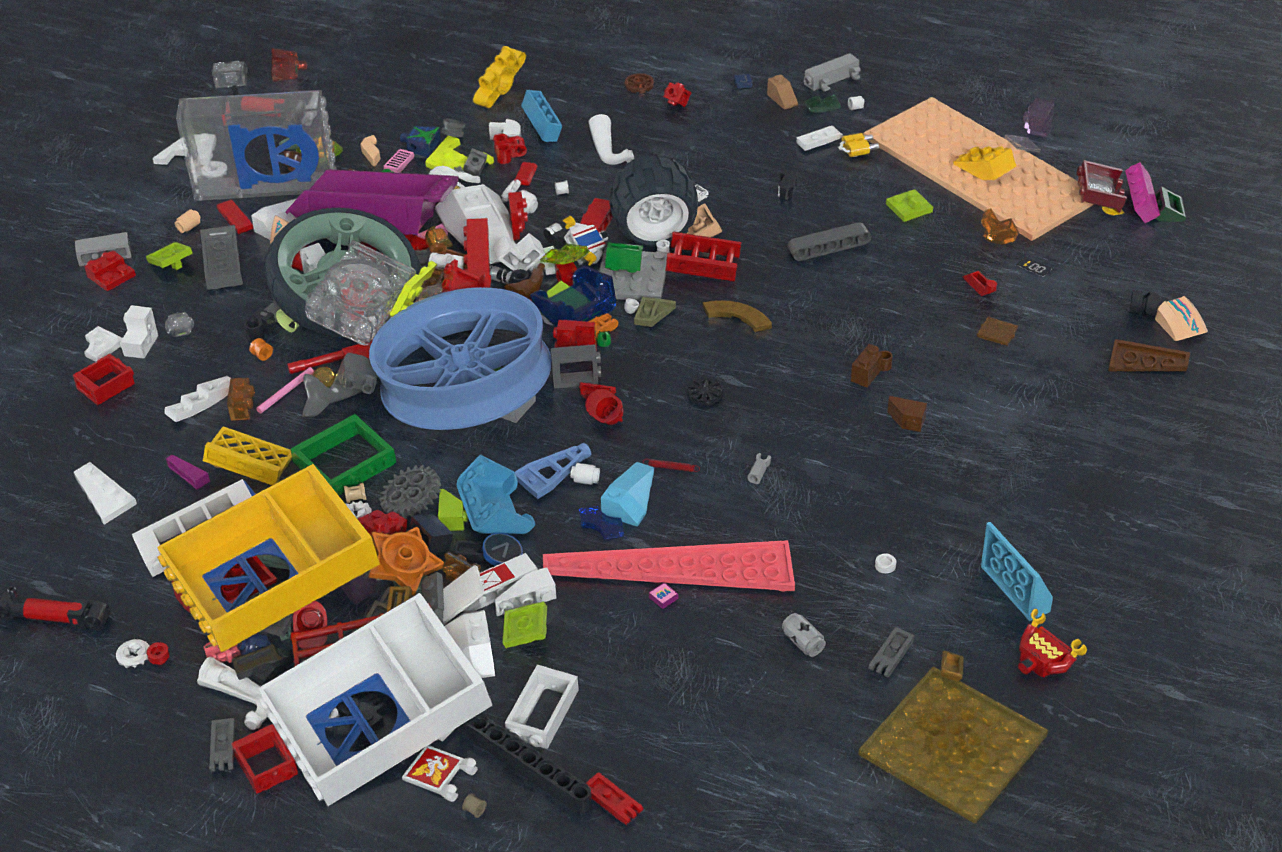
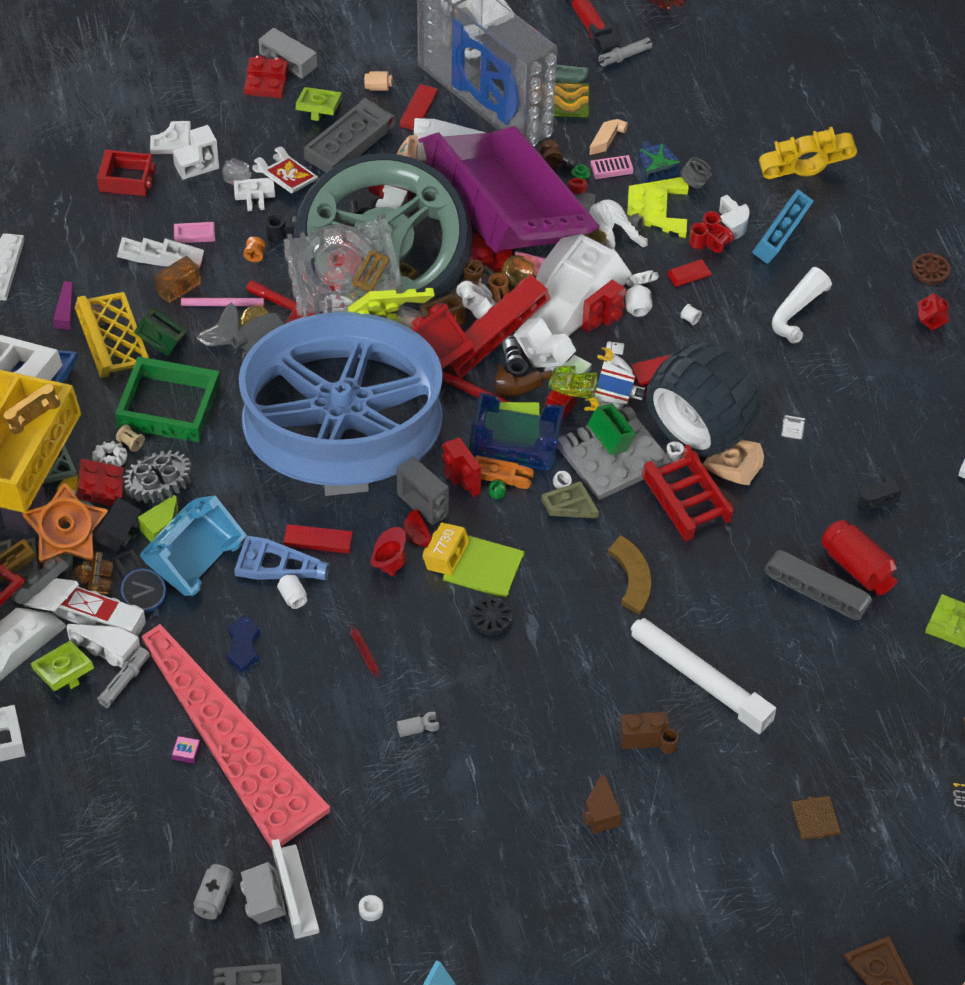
camera: 50 degrees right, 10 degrees up
(203, 373) = (194, 232): none -> bright pink tile
(205, 325) = (254, 189): none -> white hinge
(209, 301) = (286, 171): none -> flag
(278, 429) = (158, 335): none -> dark green tile
(313, 491) = (31, 408): none -> pearl gold plate
(381, 274) = (363, 285): none -> pearl gold tile
(422, 251) = (473, 272): none -> reddish brown wheel
(475, 163) = (661, 229): flat silver brick -> none
(551, 442) = (318, 539): none -> red tile
(575, 613) = (129, 670): none -> light grey pin
(629, 494) = (297, 640): medium azure wedge -> none
(631, 382) = (445, 548): none -> yellow brick
(658, 376) = (486, 567): none -> lime piece
(830, 607) = (262, 893): none -> light grey brick
(831, 210) = (860, 556): none -> red piece
(837, 594) = (295, 890): none -> white fence
(896, 313) = (751, 709): none -> white brick
(980, 283) = (876, 758): red piece -> none

